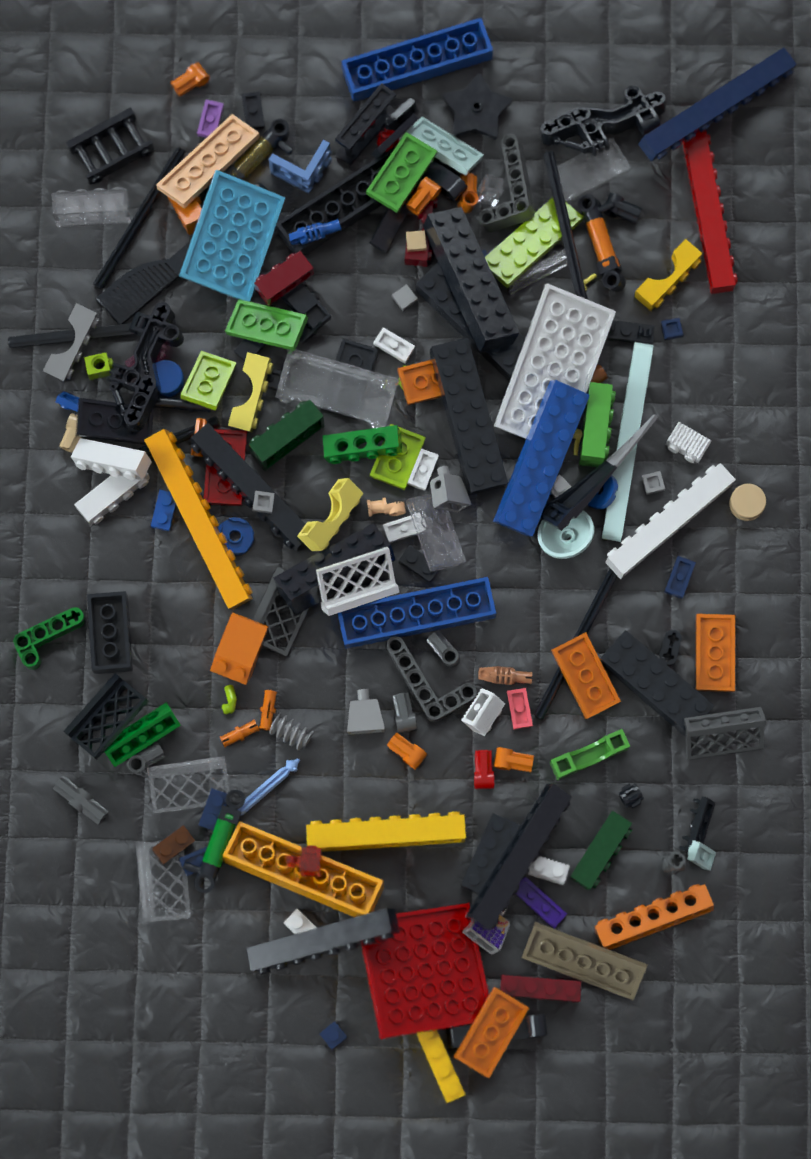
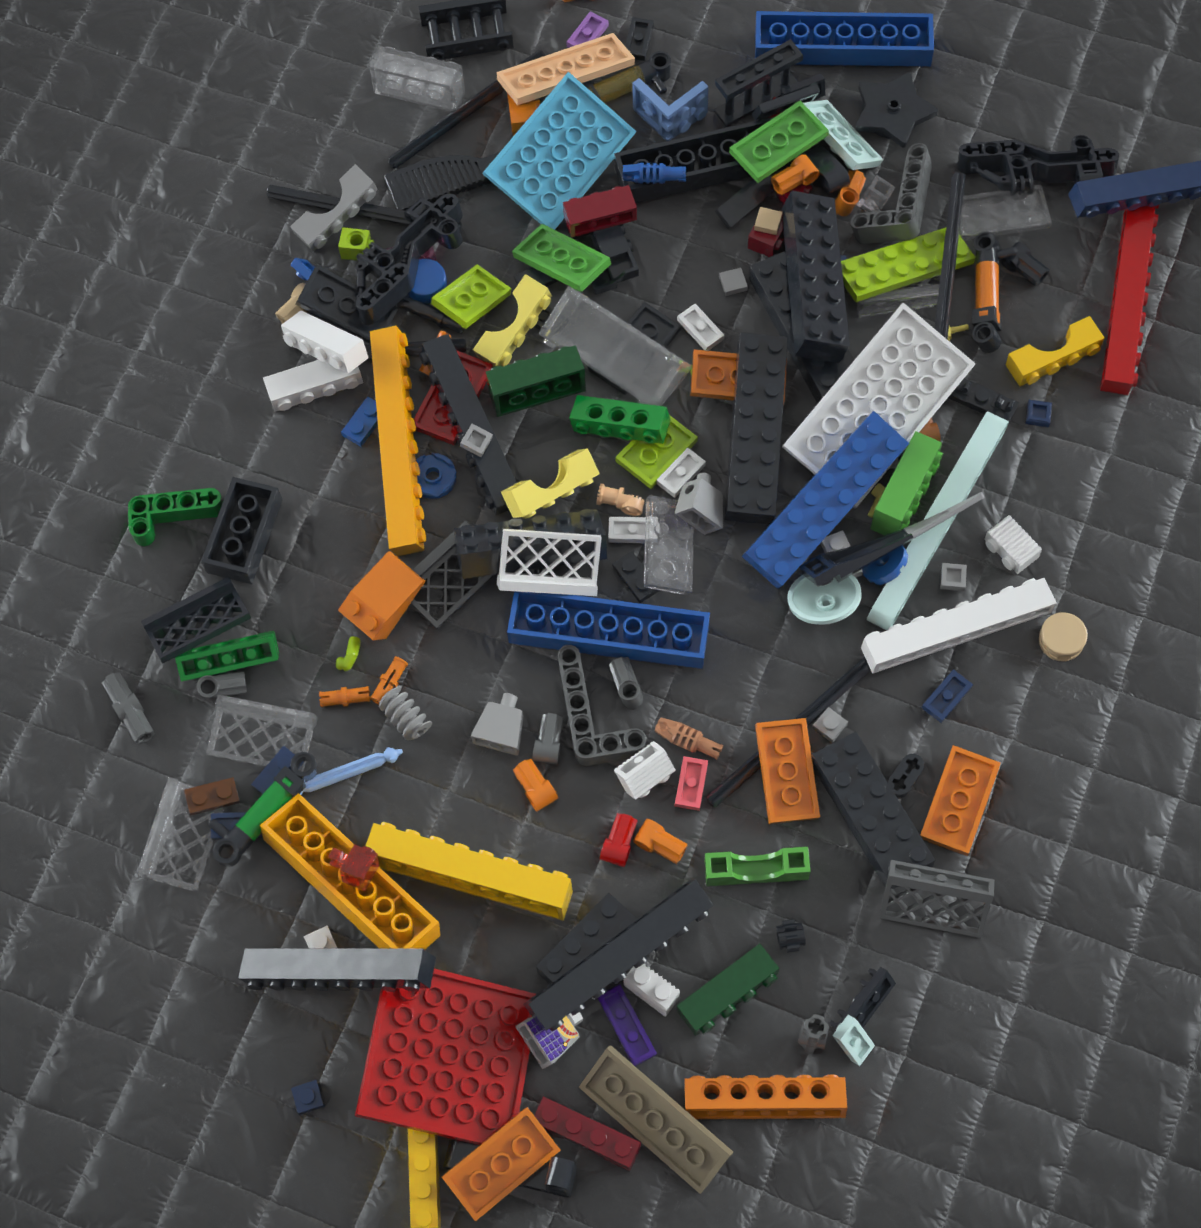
camera: 25 degrees right, 10 degrees down
(603, 628) = (830, 724): none -> light grey plate

